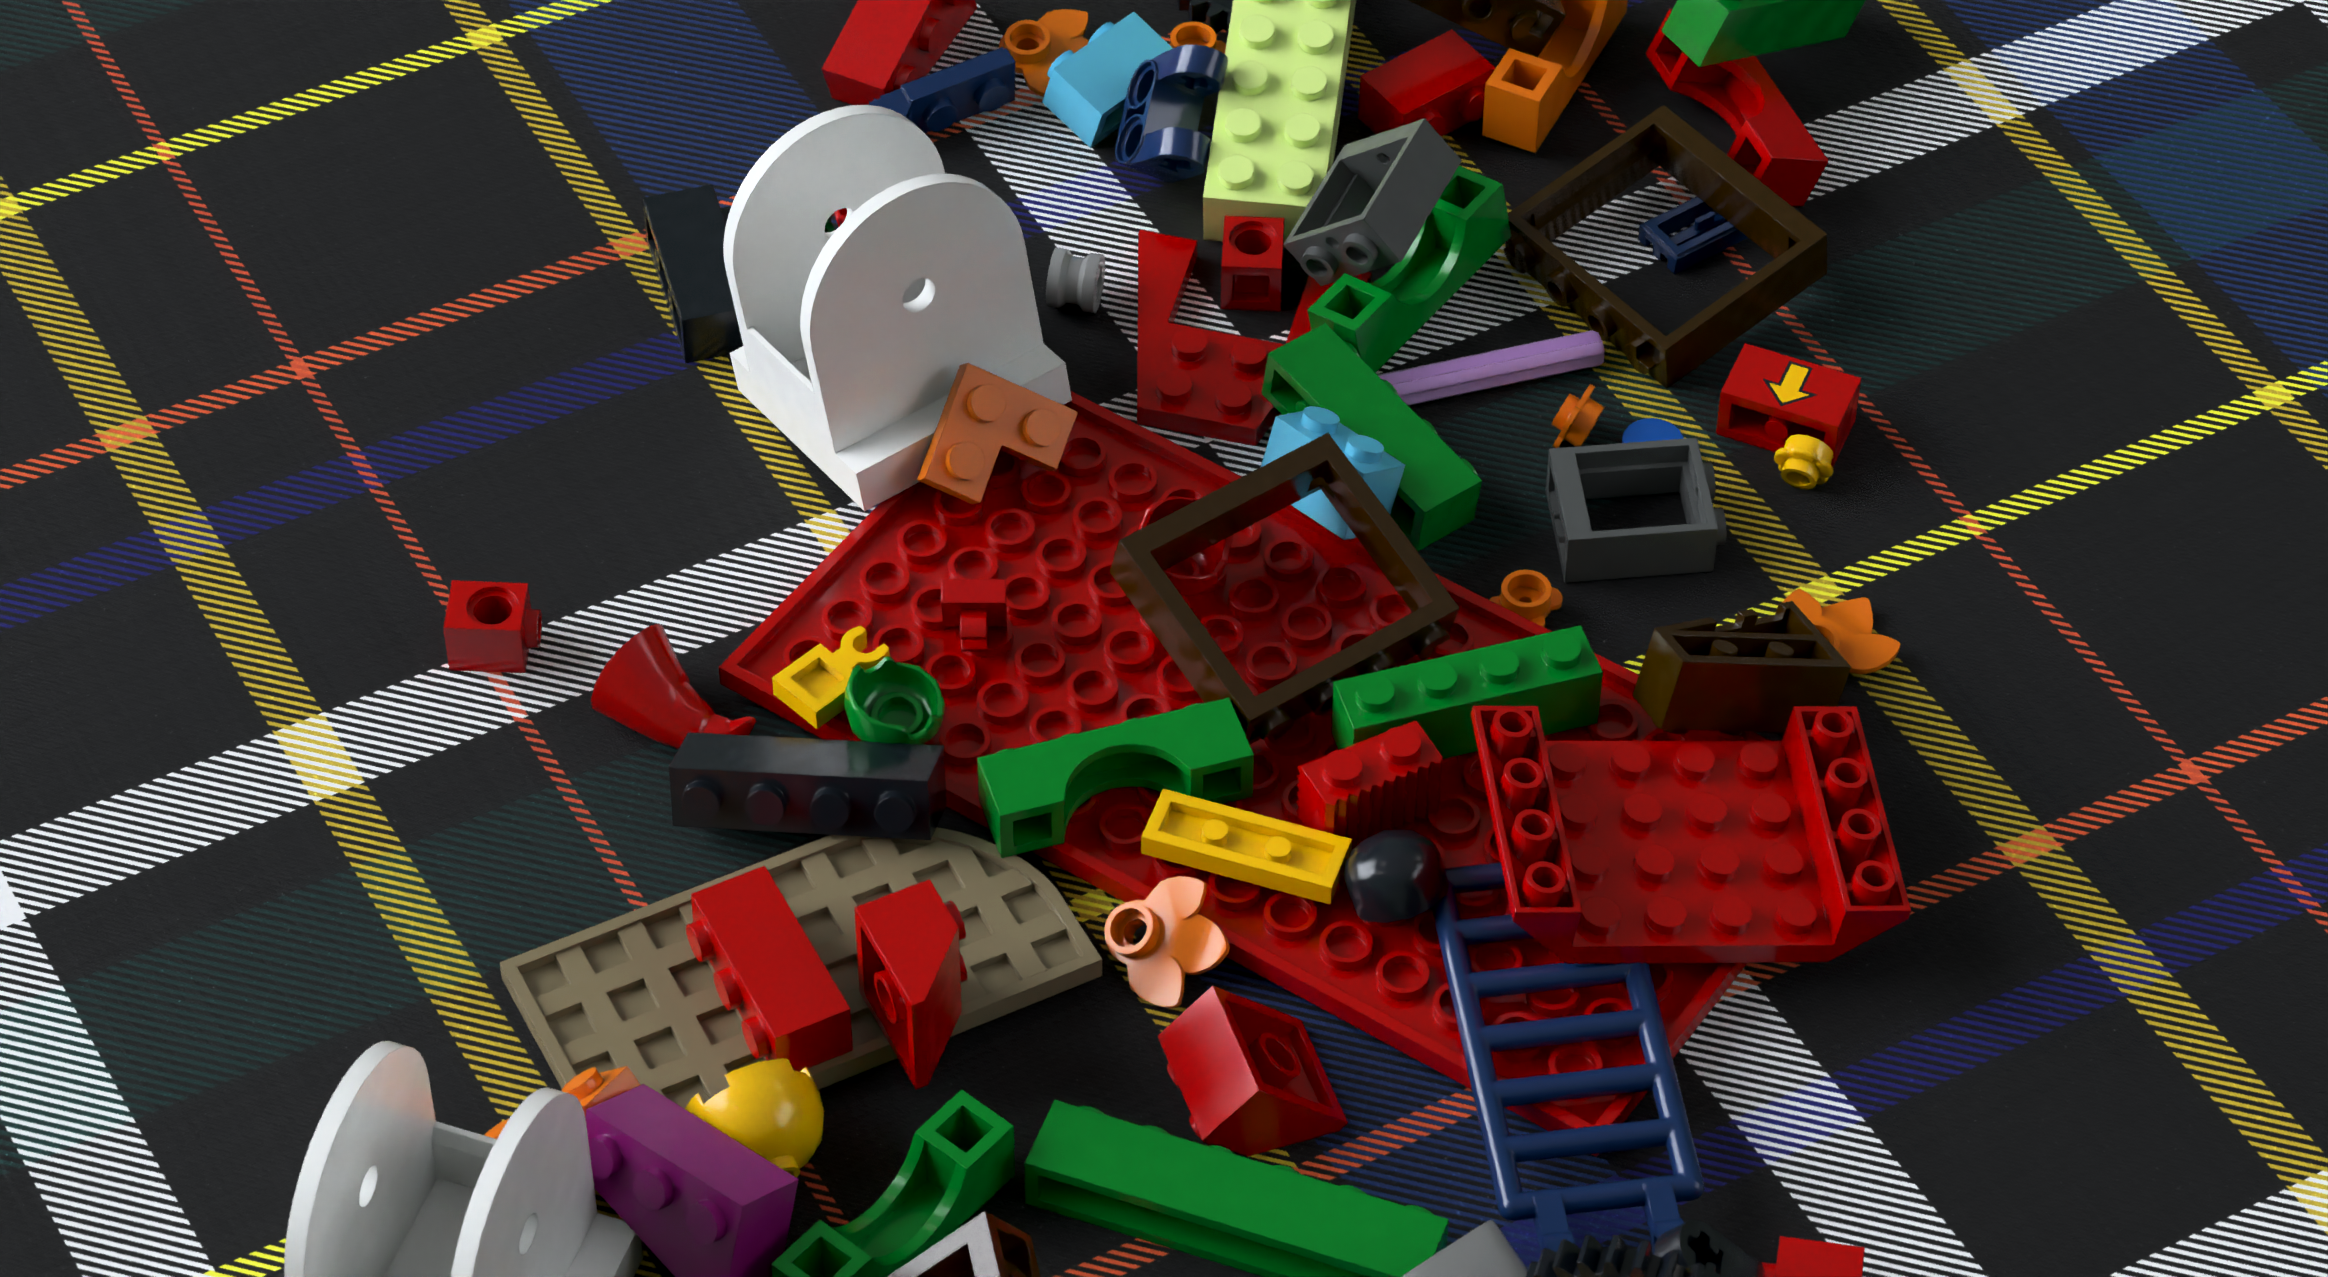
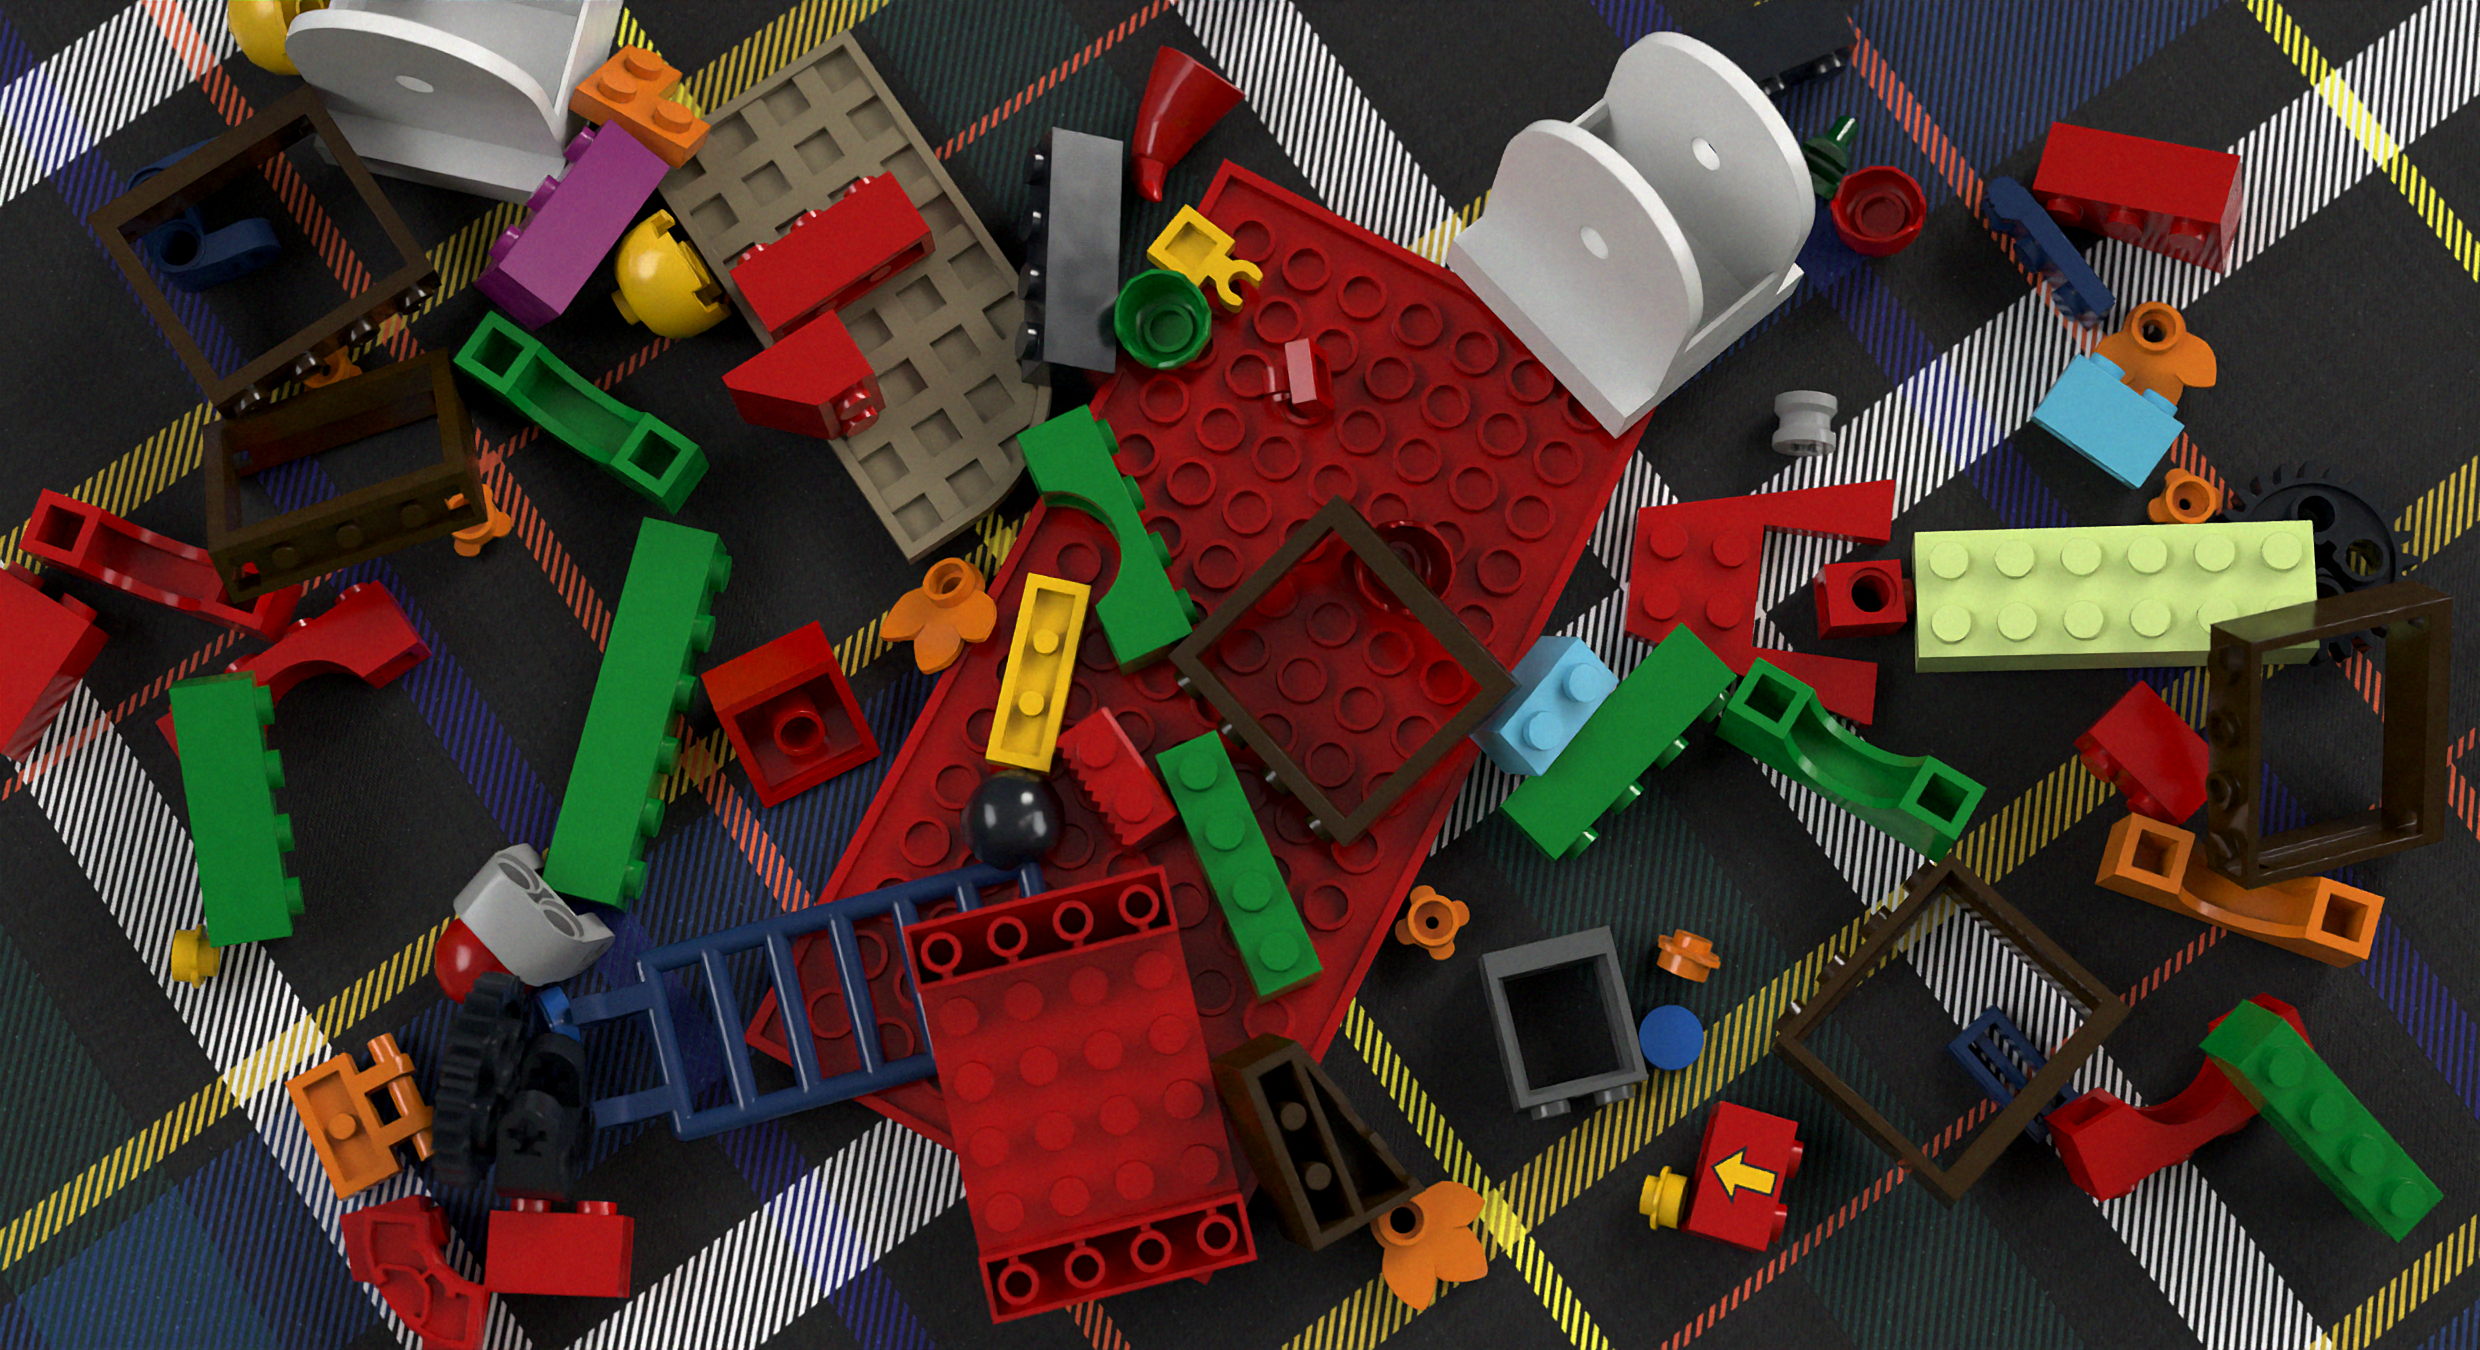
camera: 80 degrees right, 30 degrees up
(987, 417) = (1542, 352): orange plate -> none
(1165, 110) = (2031, 481): dark blue piece -> none
(1372, 203) = (1915, 677): dark grey window -> none
(1497, 368) = (1754, 859): lavender axle -> none

